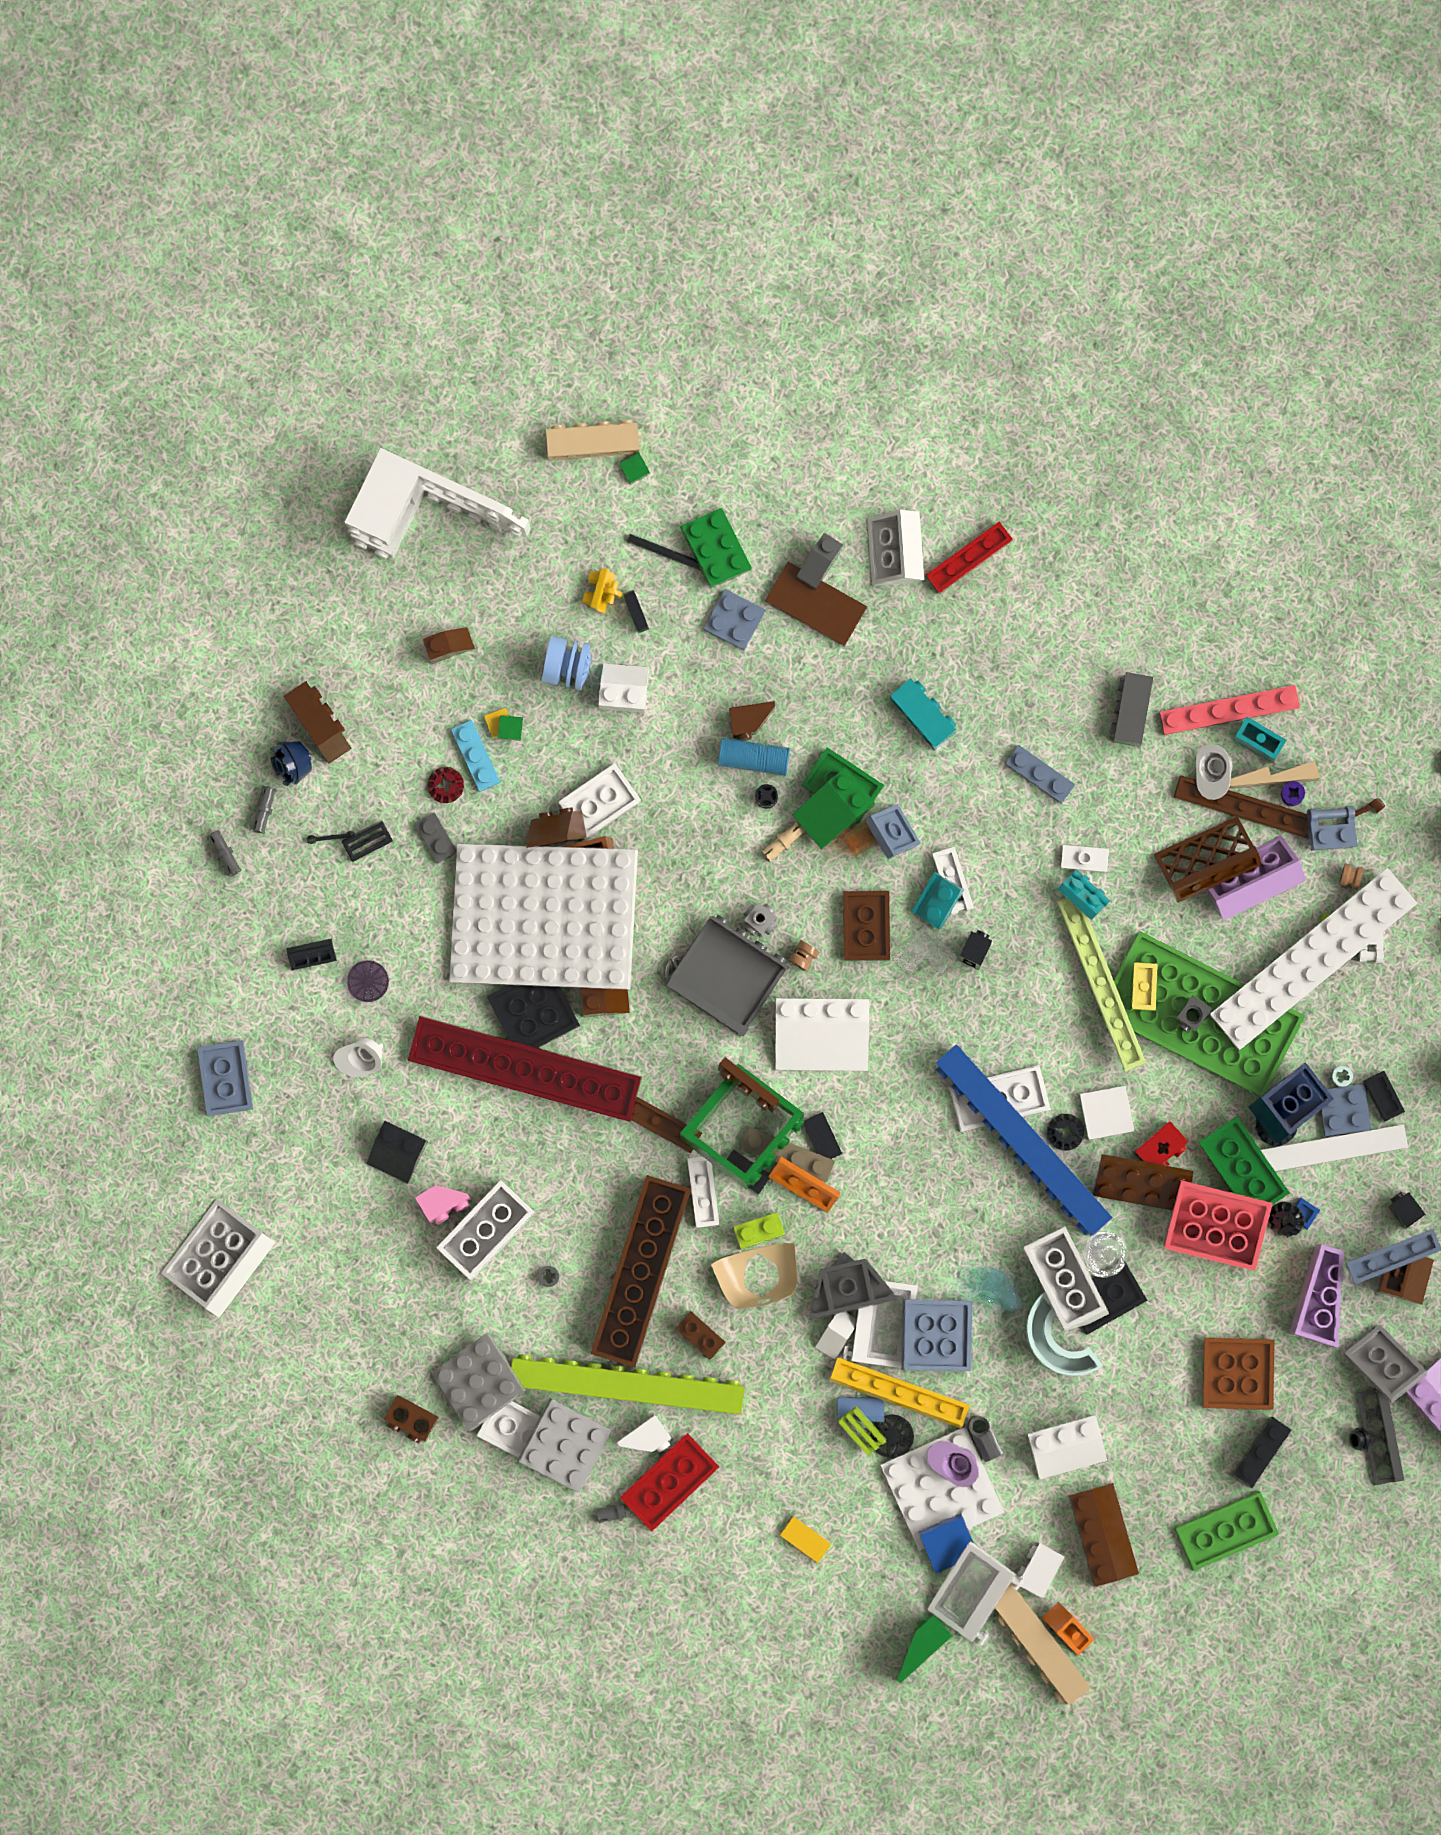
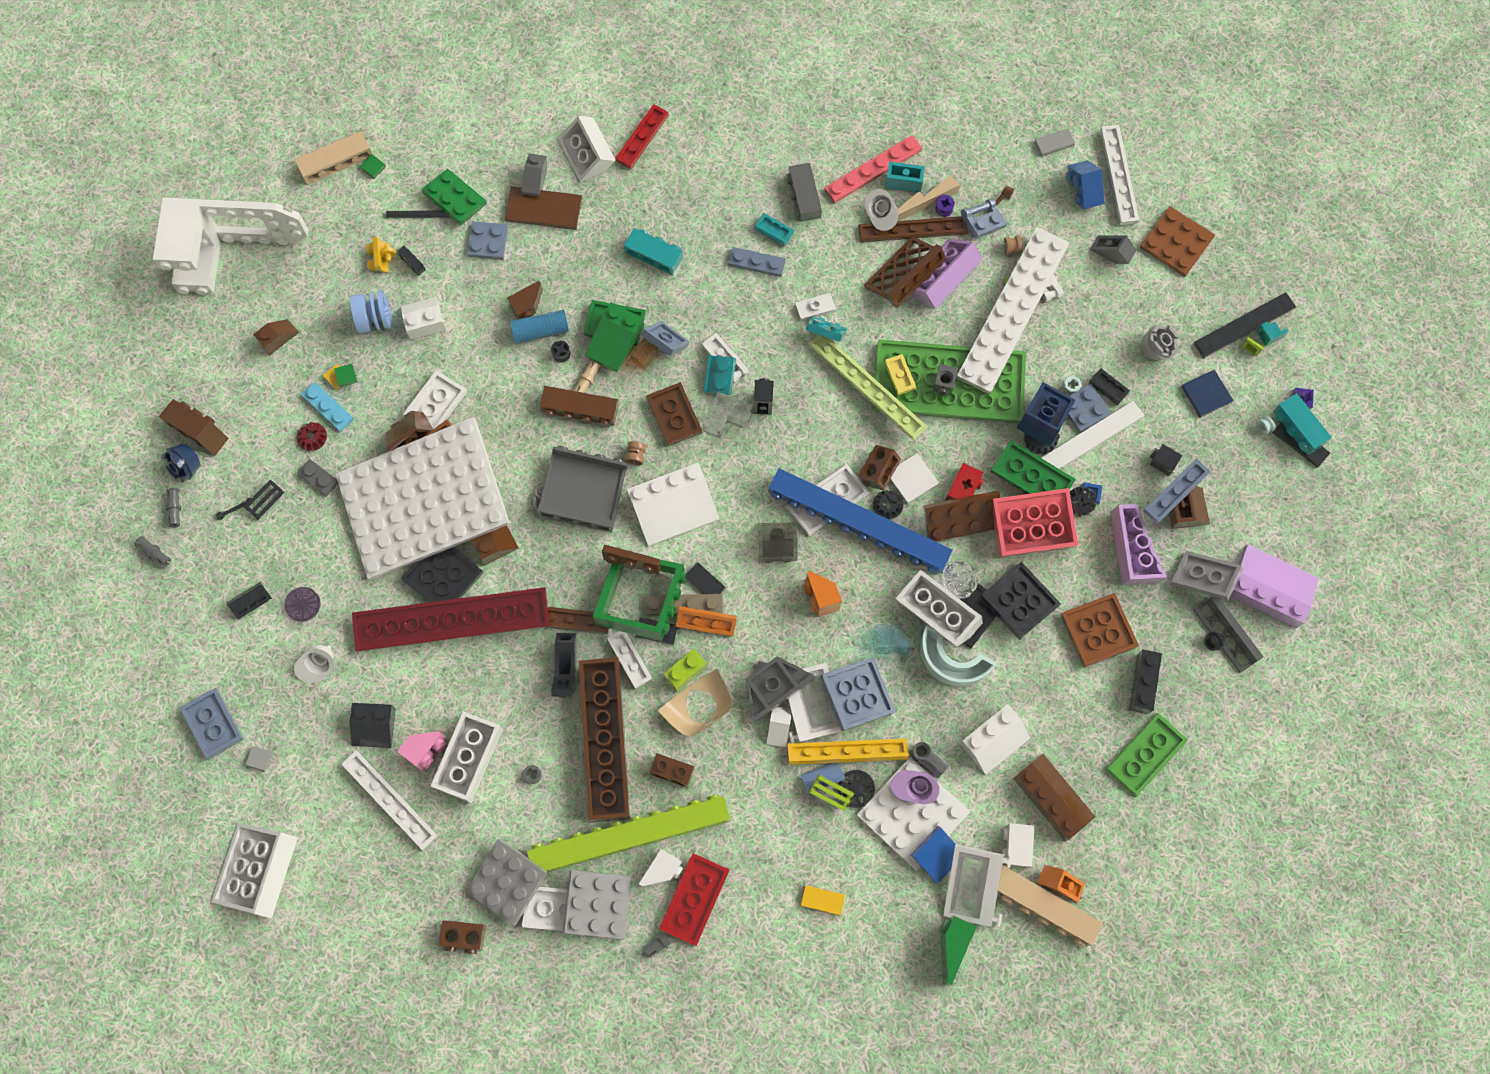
camera: 30 degrees left, 10 degrees down
(262, 1137) = (259, 758): none -> light grey tile
(386, 1241) = (389, 800): none -> white plate
(629, 1172) = (565, 665): none -> black arch
(761, 872) = (579, 406): none -> reddish brown brick
(766, 926) = (593, 444): light grey brick -> none
(921, 1125) = (777, 542): none -> clear smoke slope
(945, 1210) = (823, 594): none -> orange slope
(1076, 1090) = (879, 467): none -> reddish brown brick
(1077, 742) = (774, 229): none -> teal plate
(1164, 1304) = (1020, 600): none -> black plate

